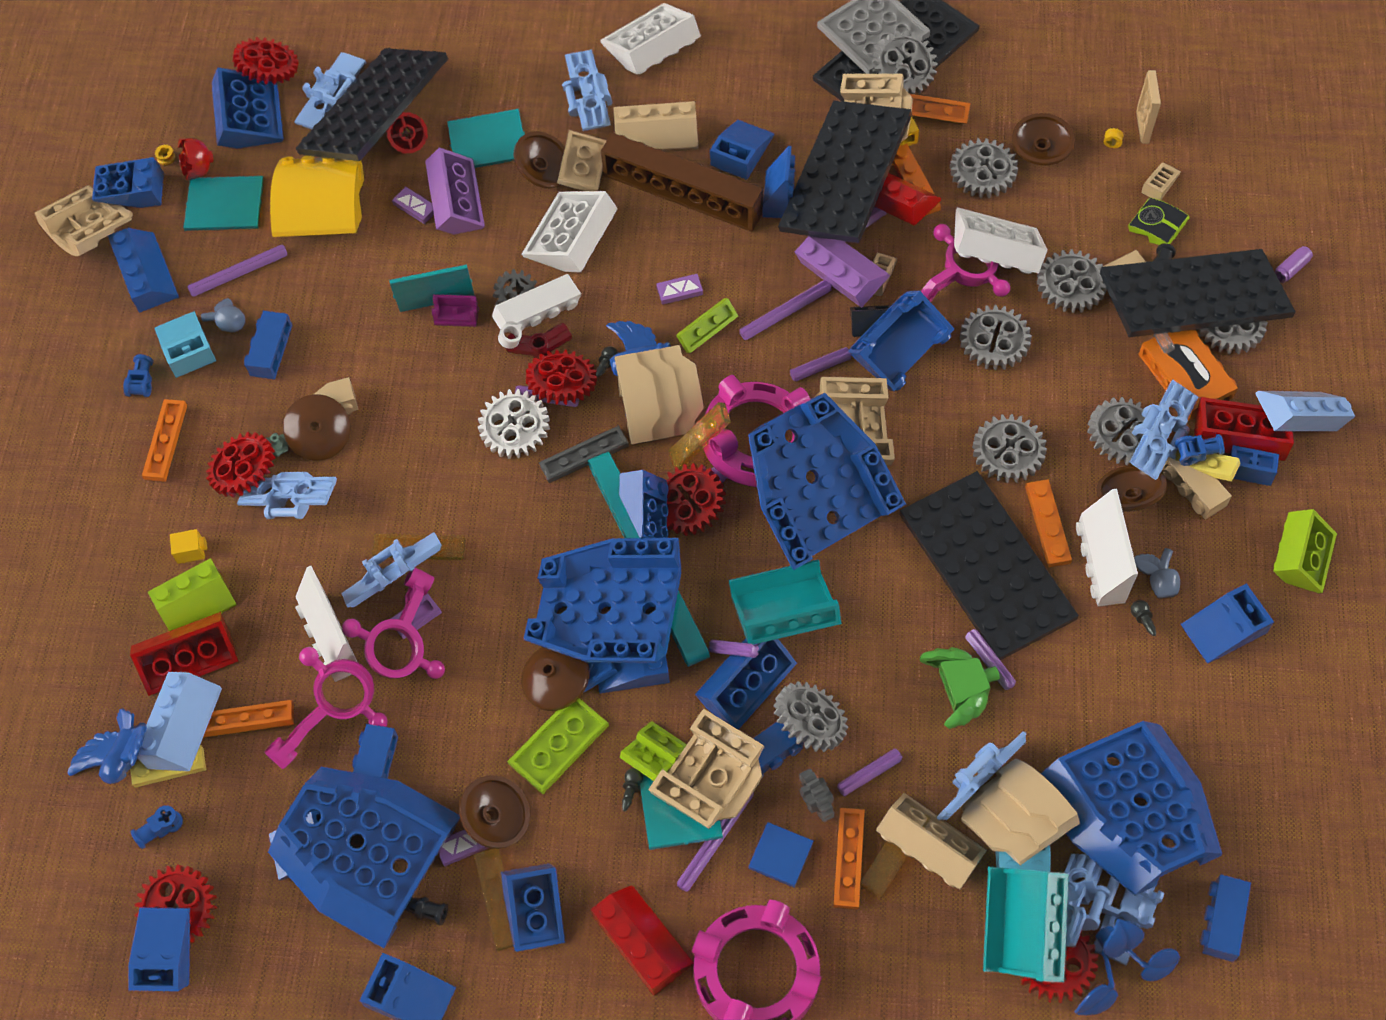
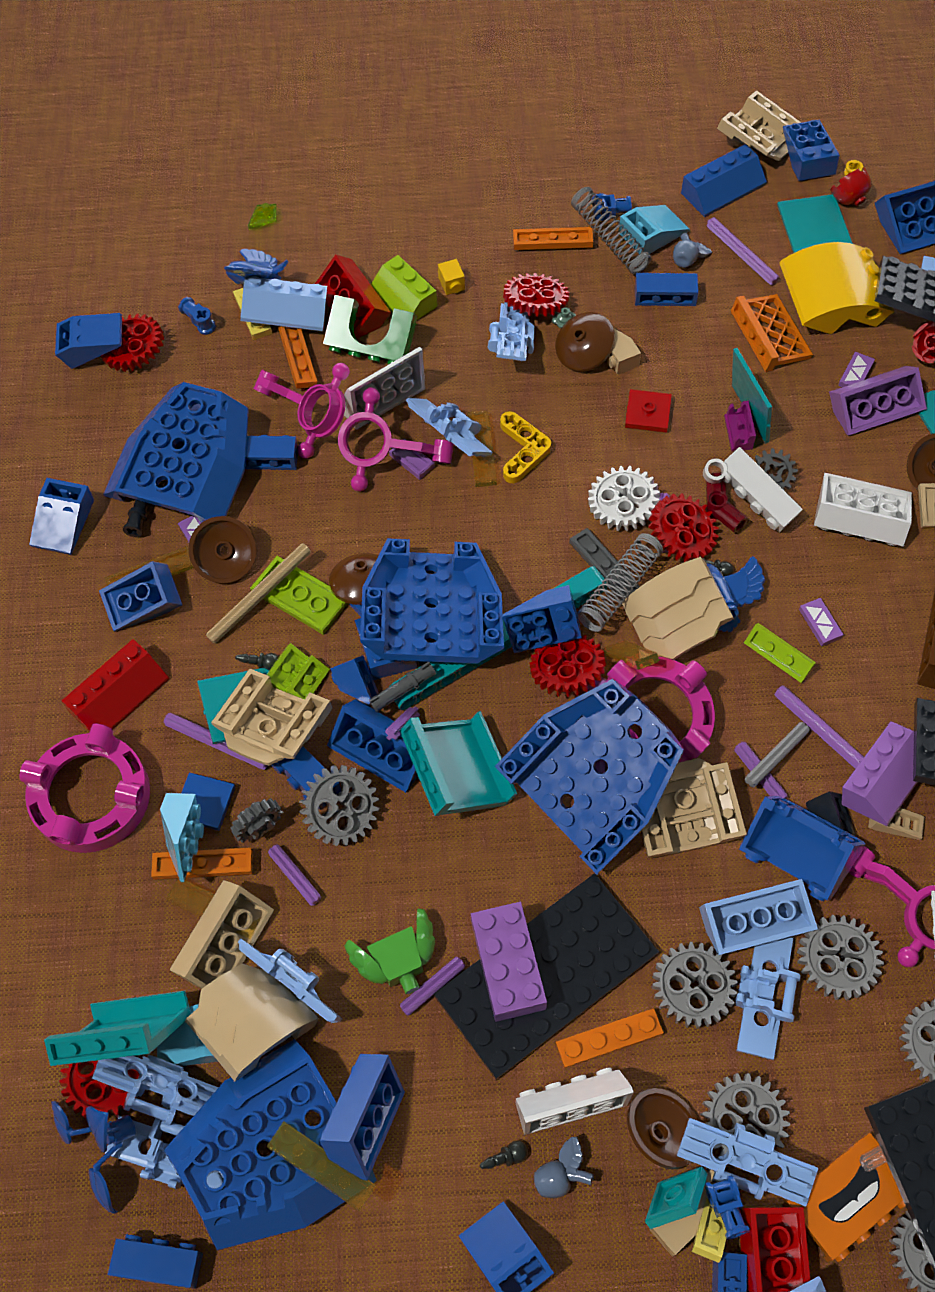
camera: 80 degrees right, 0 degrees up
(25, 742) = (263, 215): none -> clear neon green piece
(132, 397) = (635, 262): none -> light grey piece
(271, 615) = (341, 333): none -> arch
(348, 275) = (757, 334): none -> orange fence
(412, 387) = (648, 410): none -> red plate
(431, 500) = (530, 446): none -> yellow beam
(553, 780) = (258, 593): none -> tan axle
(577, 400) = (595, 613): none -> light grey piece
(673, 692) = (355, 679): none -> blue slope
(691, 636) = (406, 684): none -> dark grey pin
(808, 345) = (777, 754): none -> light grey axle
(824, 866) = (181, 829): none -> medium azure slope
(957, 387) = (758, 917): none -> light blue slope
(981, 585) = (508, 961): none -> medium lavender brick
(1017, 402) = (757, 994): none -> light blue piece
(1111, 716) = (363, 1115): none -> blue slope
(1157, 753) = (314, 1162): none -> clear yellow tile
(1190, 484) = (676, 1197): none -> teal tile

